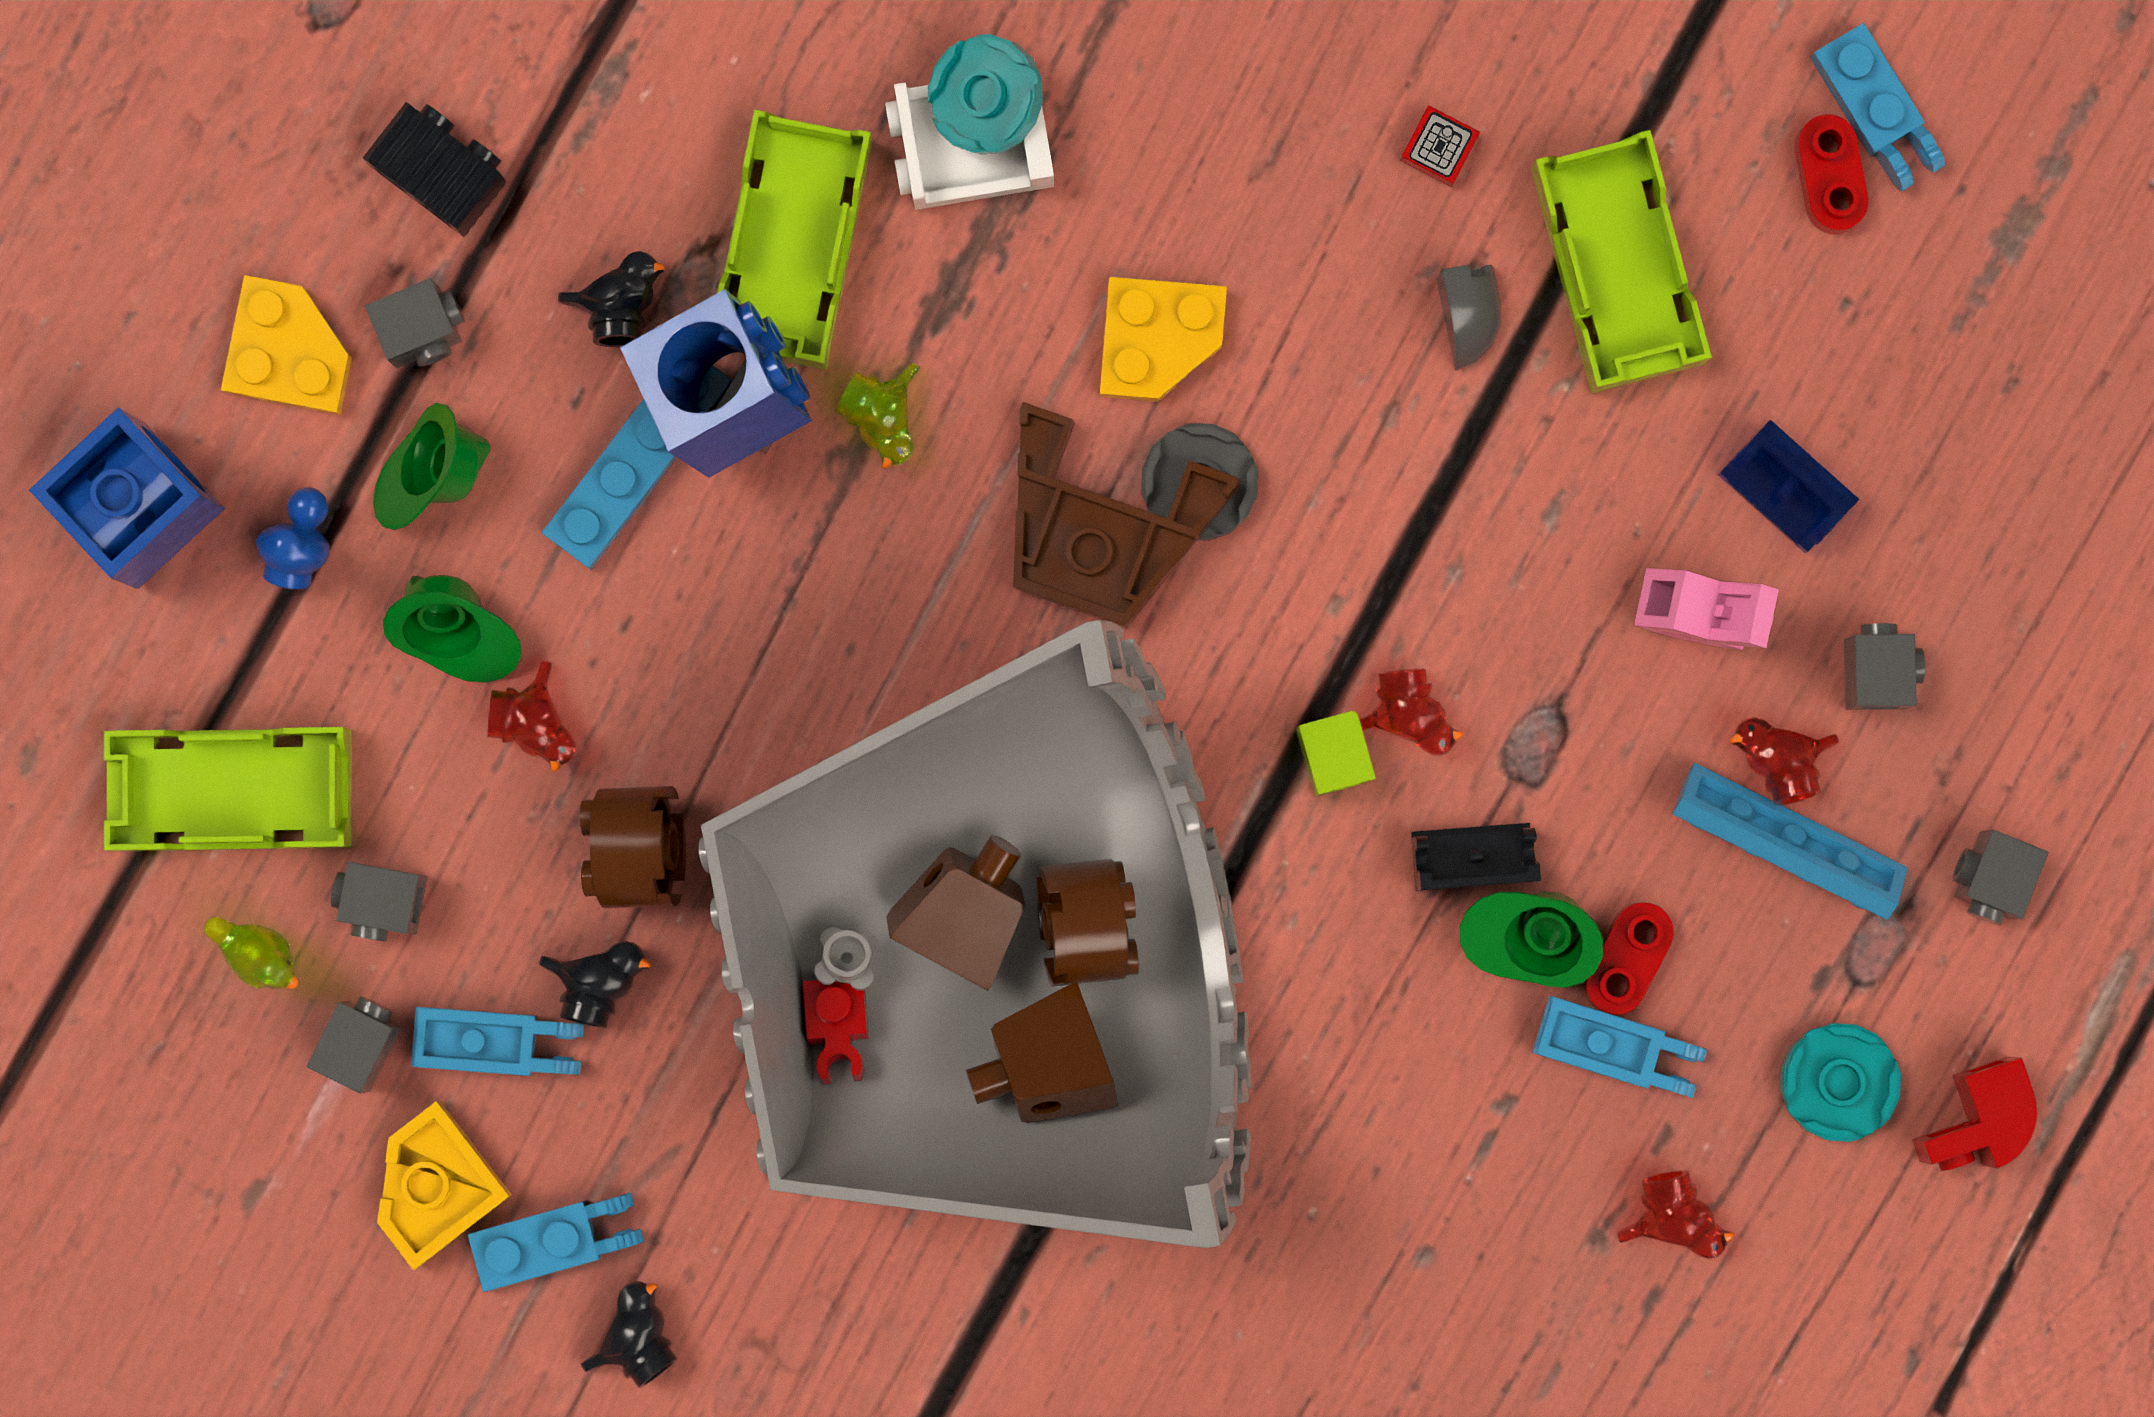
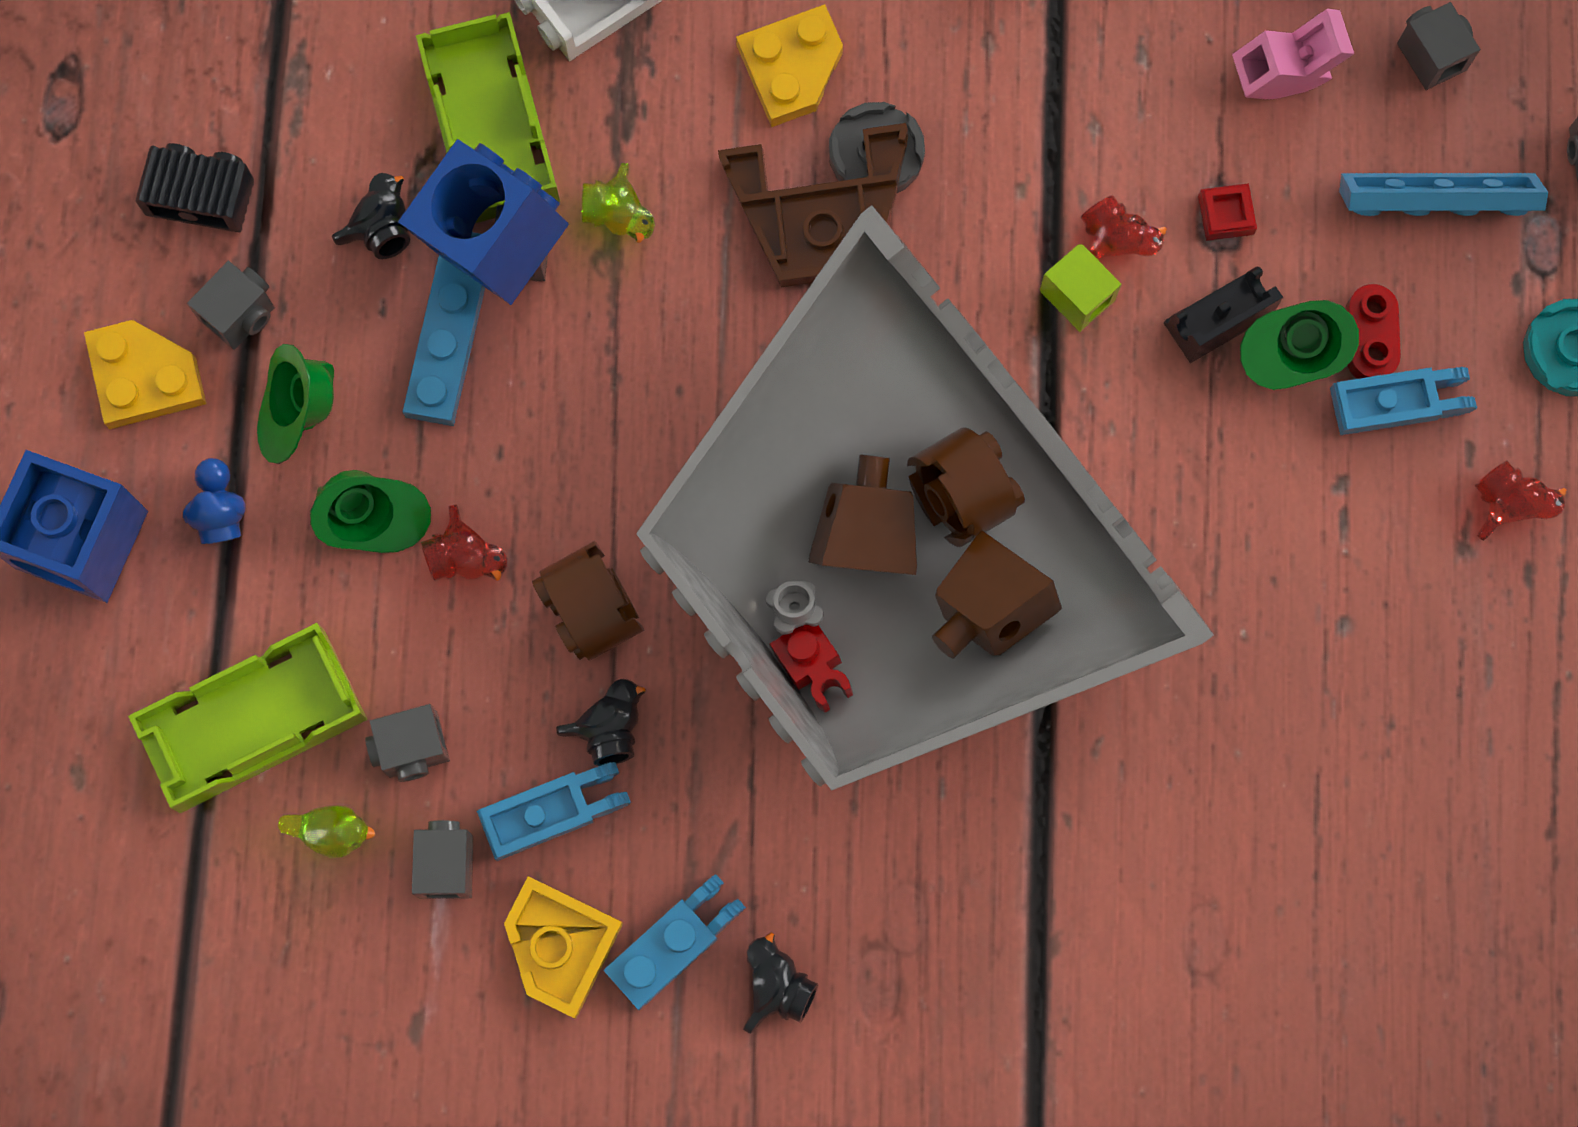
camera: 25 degrees left, 10 degrees down
(1546, 743) = (1227, 212): none -> red tile
(1782, 758) = (1404, 138): clear red animal -> none

